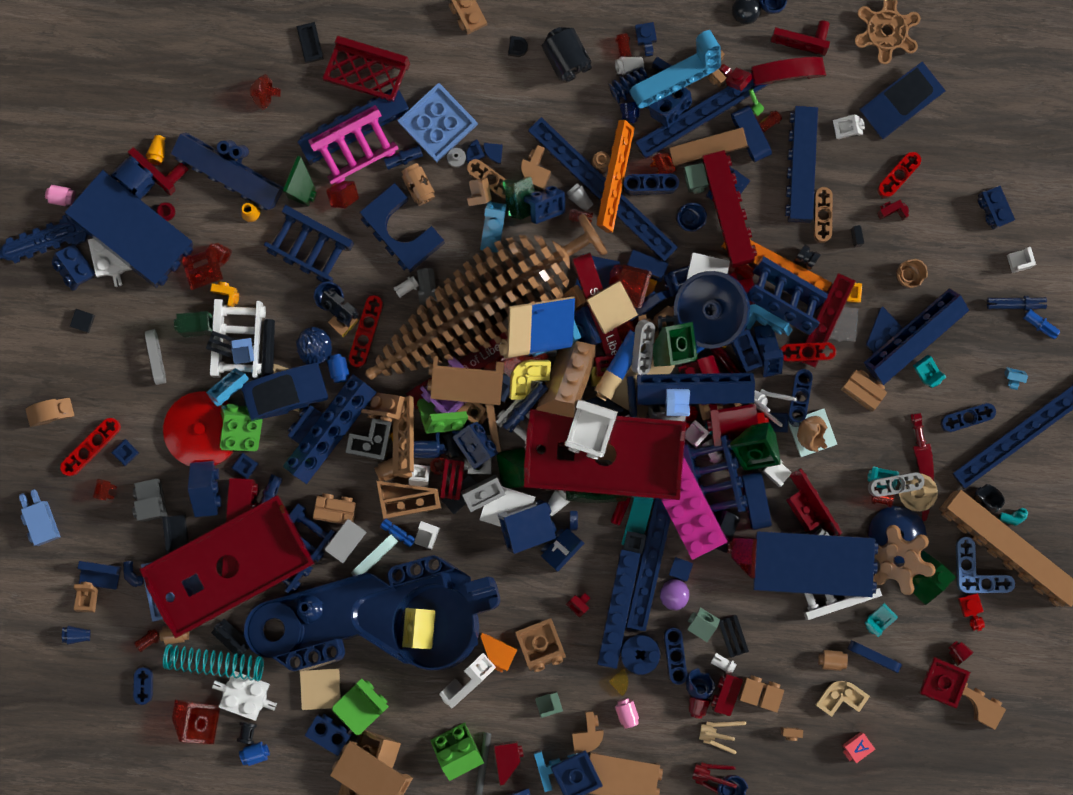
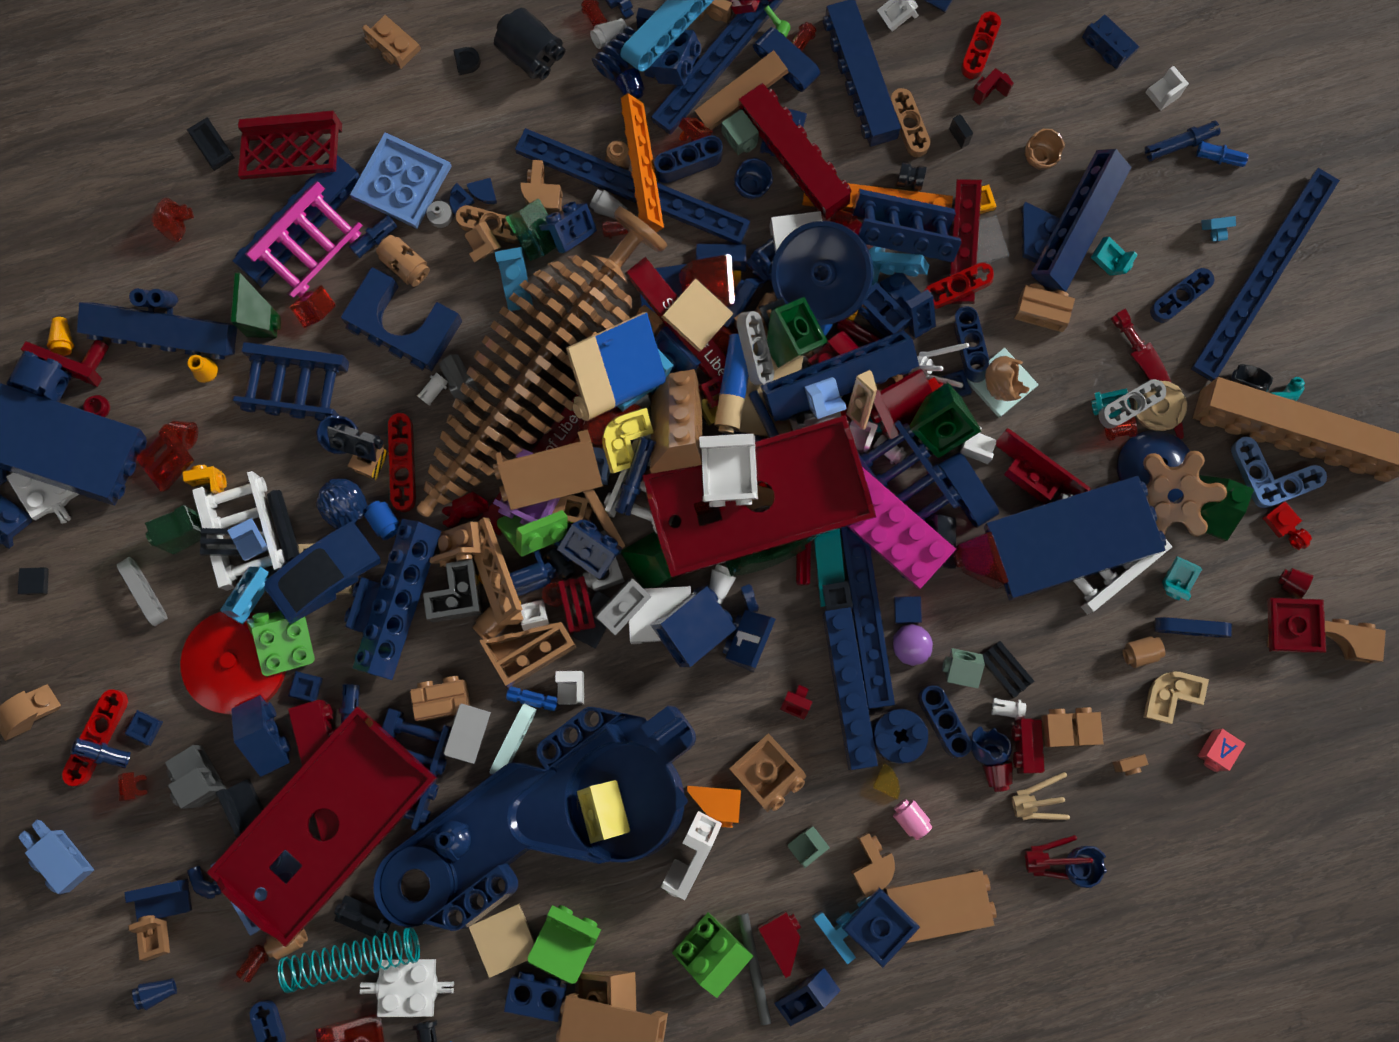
camera: 20 degrees left, 5 degrees down
(92, 460) = (100, 753): none -> dark blue pin
(401, 381) = (467, 506): none -> dark red plate
(703, 412) = (862, 399): none -> tan slope

